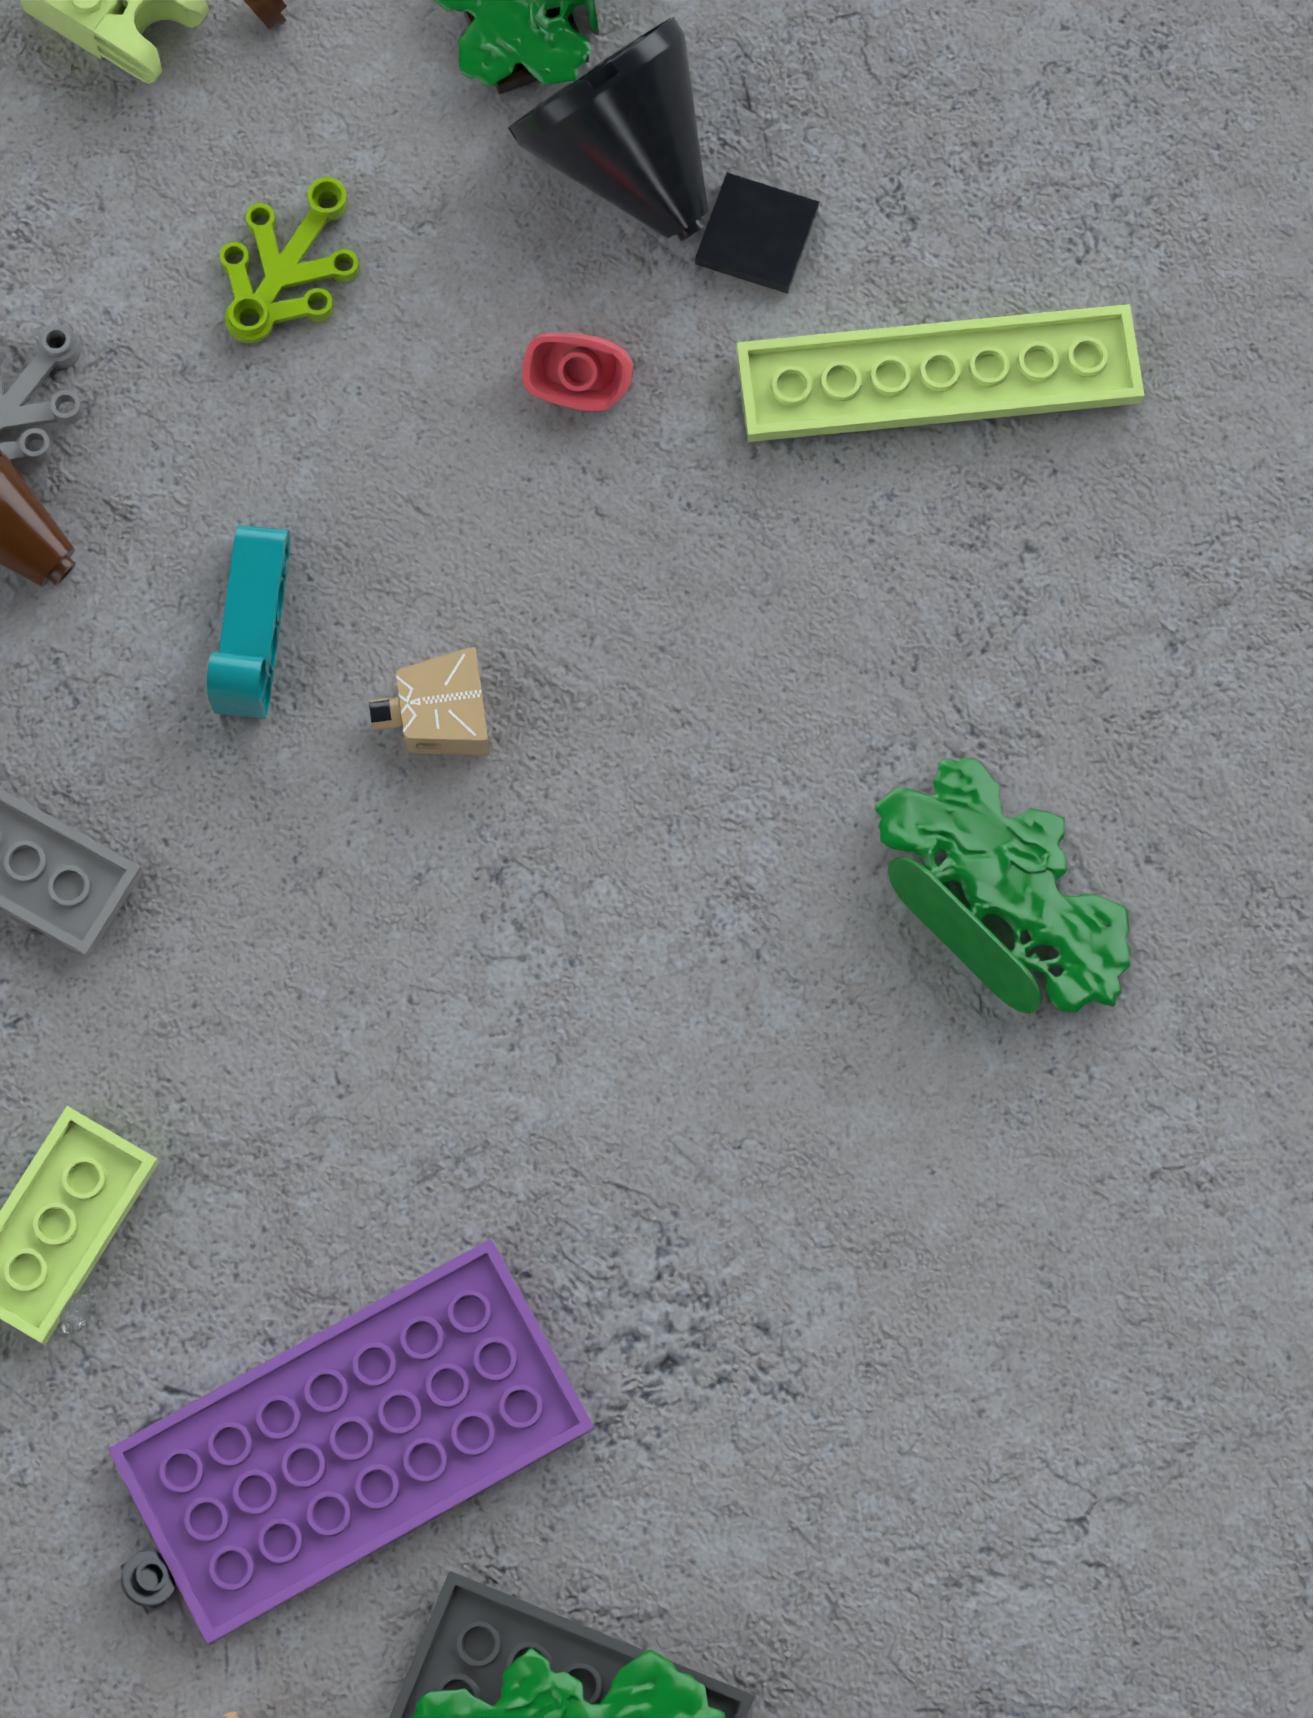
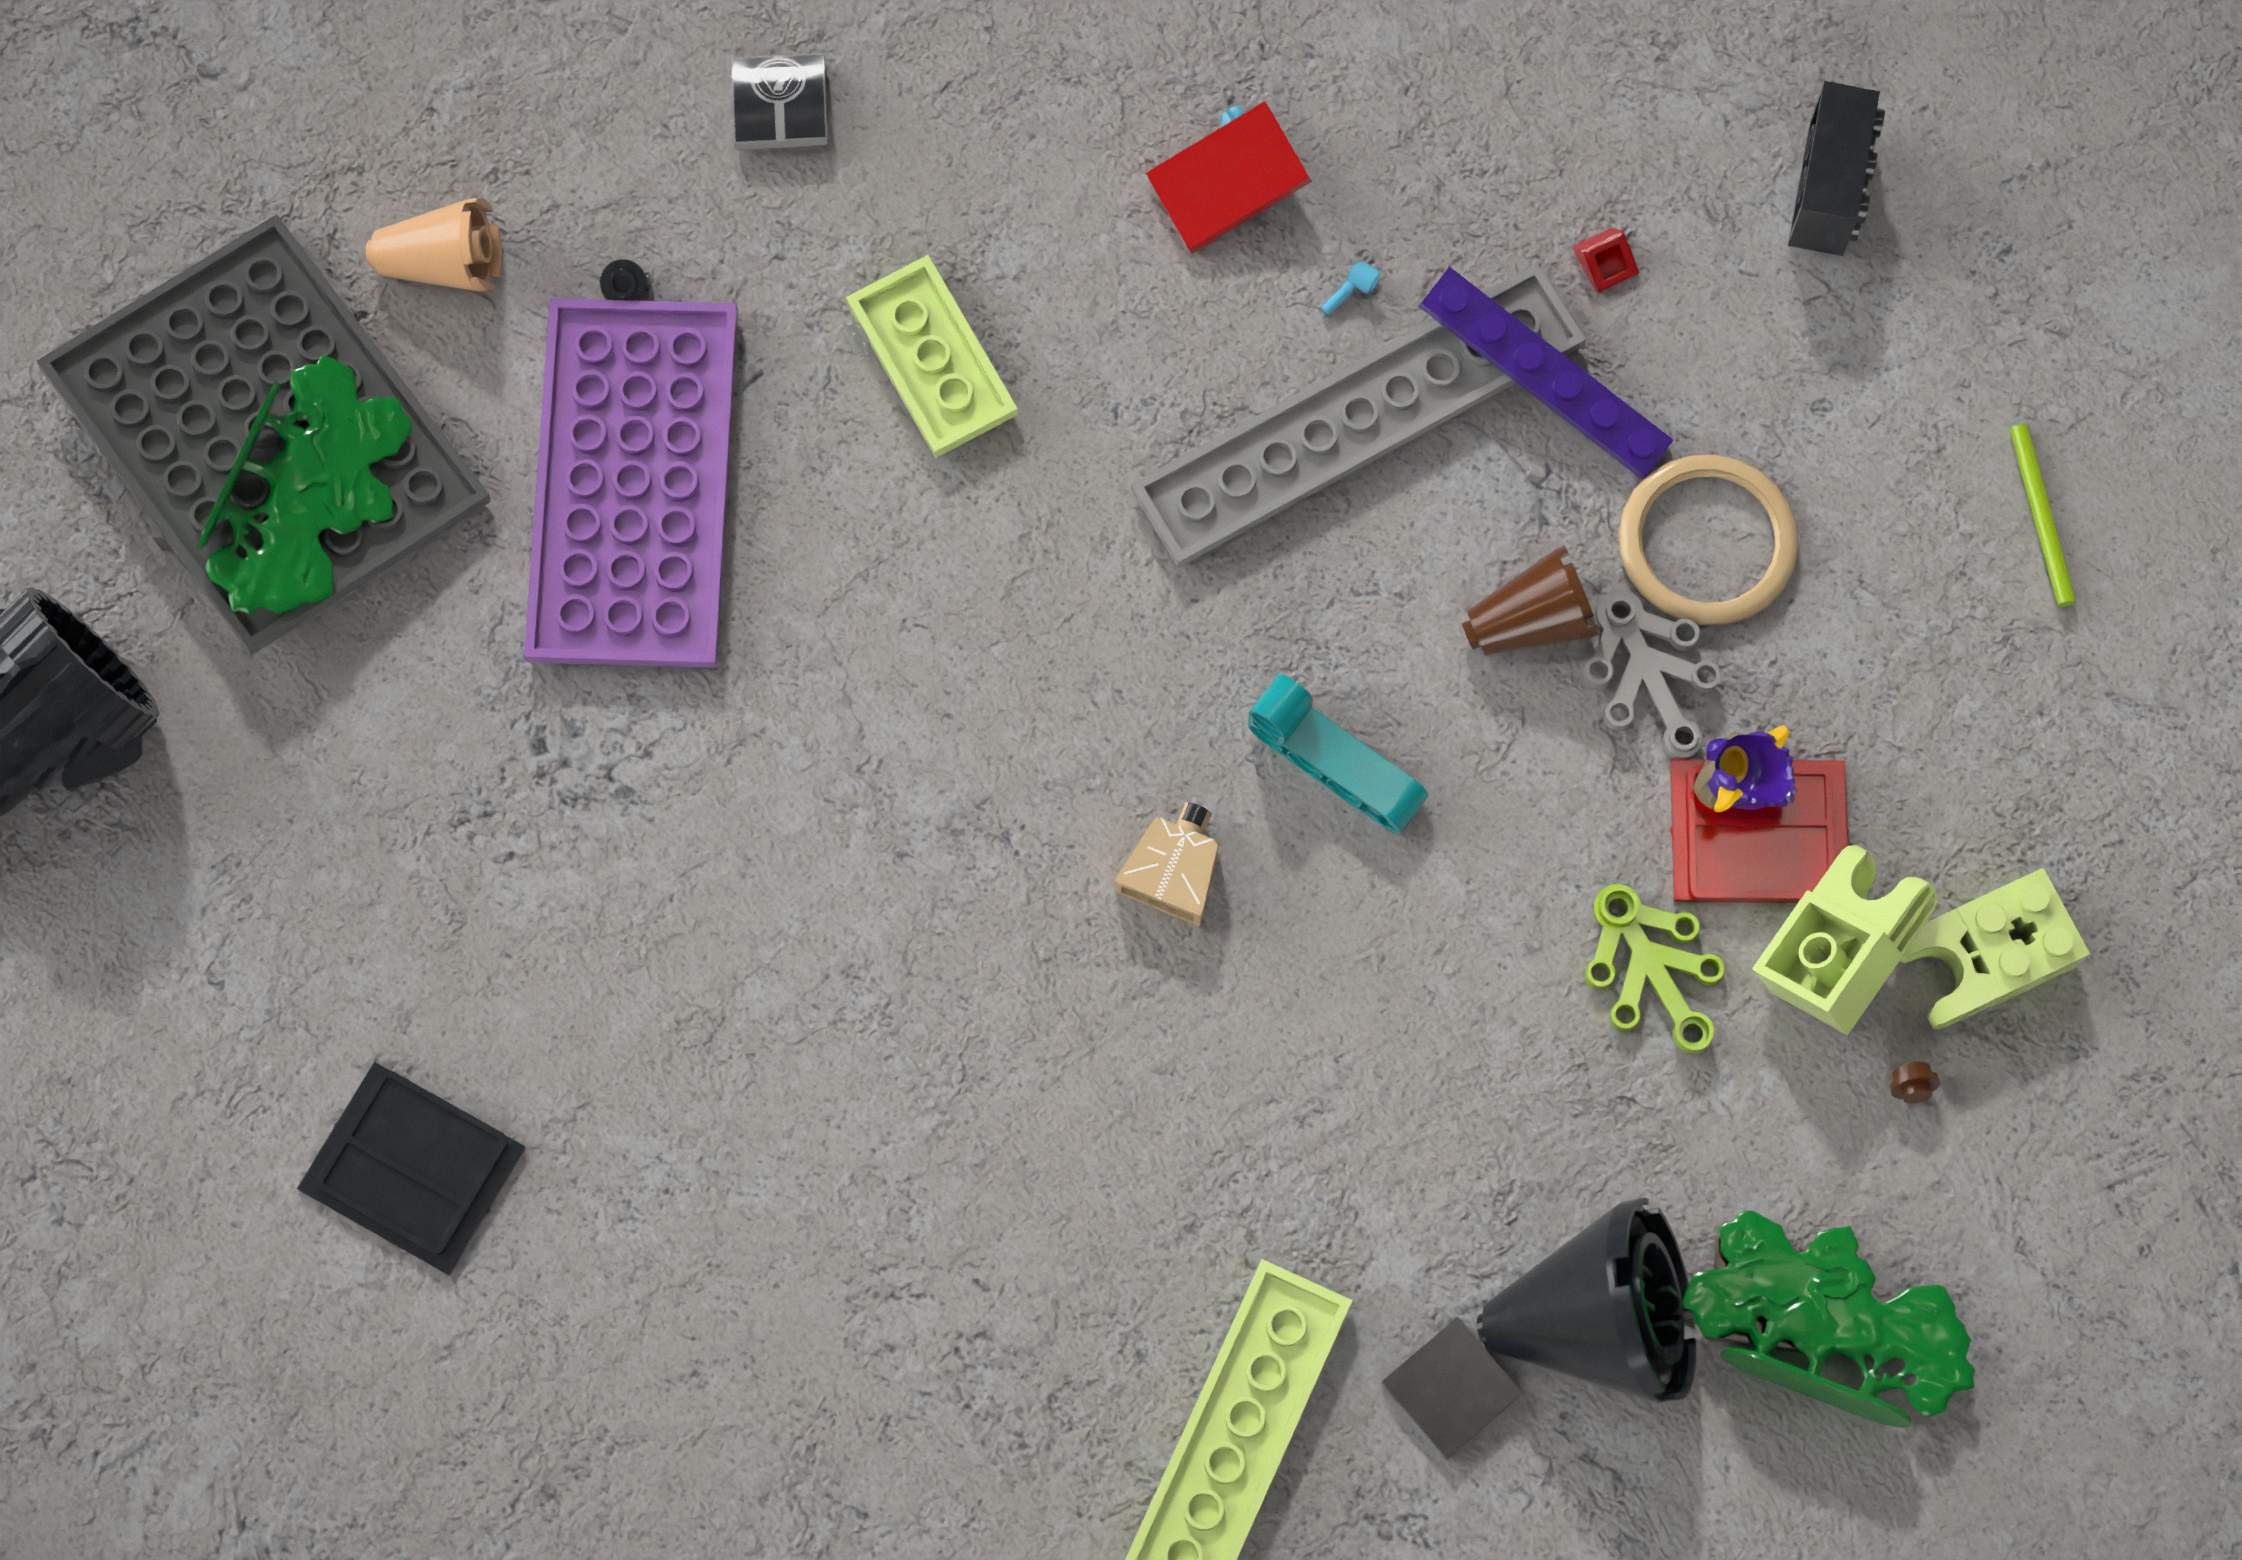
camera: 125 degrees right, 0 degrees up
(64, 258) = (1747, 772): none -> dark purple hair
(107, 244) = (1761, 851): none -> piece
(162, 100) = (1841, 945): none -> yellowish green brick
(577, 370) = (1404, 1147): coral piece -> none
(1008, 872) = (751, 1243): green plant -> none
(1134, 1227) = (411, 1168): none -> black piece

